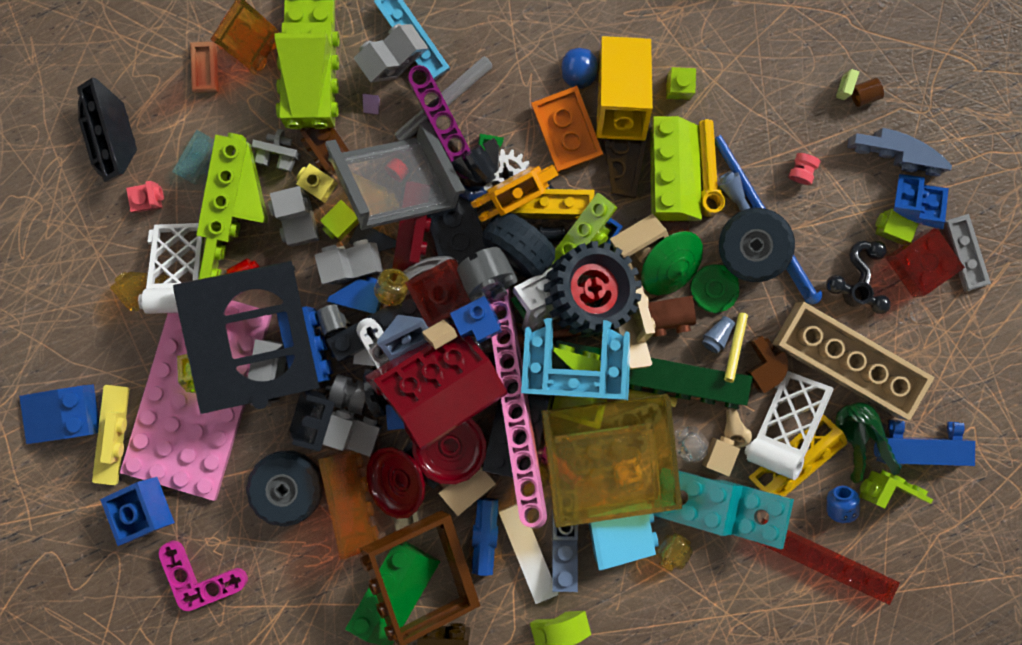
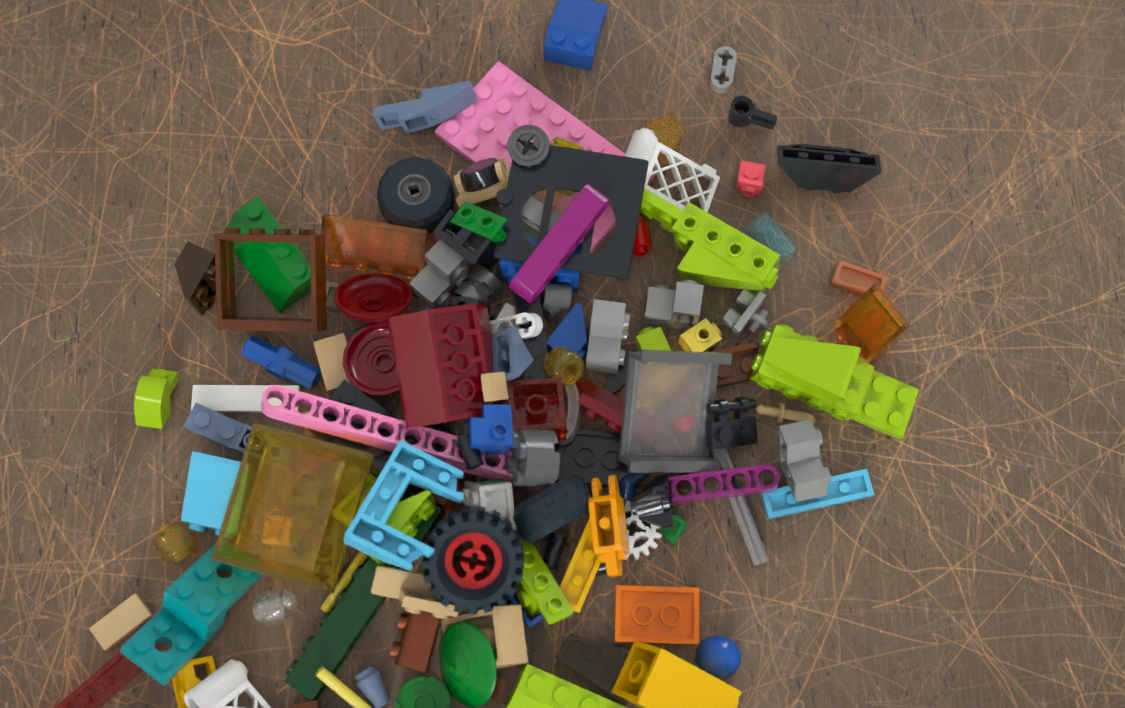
camera: 115 degrees right, 15 degrees down
(45, 267) = (718, 69): none -> light grey beam
(80, 217) = (751, 116): none -> black axle
(111, 435) = (537, 66): light yellow bracket -> none
(137, 511) = (454, 58): blue brick -> none
(191, 508) = (433, 108): none -> sand blue slope
(191, 585) = (366, 83): dark pink beam -> none
(195, 388) = (525, 134): none -> dark grey gear
(248, 431) = (481, 180): none -> piece
(284, 332) = (559, 243): none -> magenta beam
(293, 412) = (480, 222): none -> green hinge
(352, 91) = (785, 414): none -> tan piece
(371, 104) = (762, 425): lavender piece -> none
(388, 124) = (731, 432): none -> black plate
(508, 327) = (470, 455): none -> black pin
(721, 455) = (247, 634): tan brick -> none
(736, 430) = (265, 660): tan animal -> none
(753, 564) = (121, 622): none -> tan tile

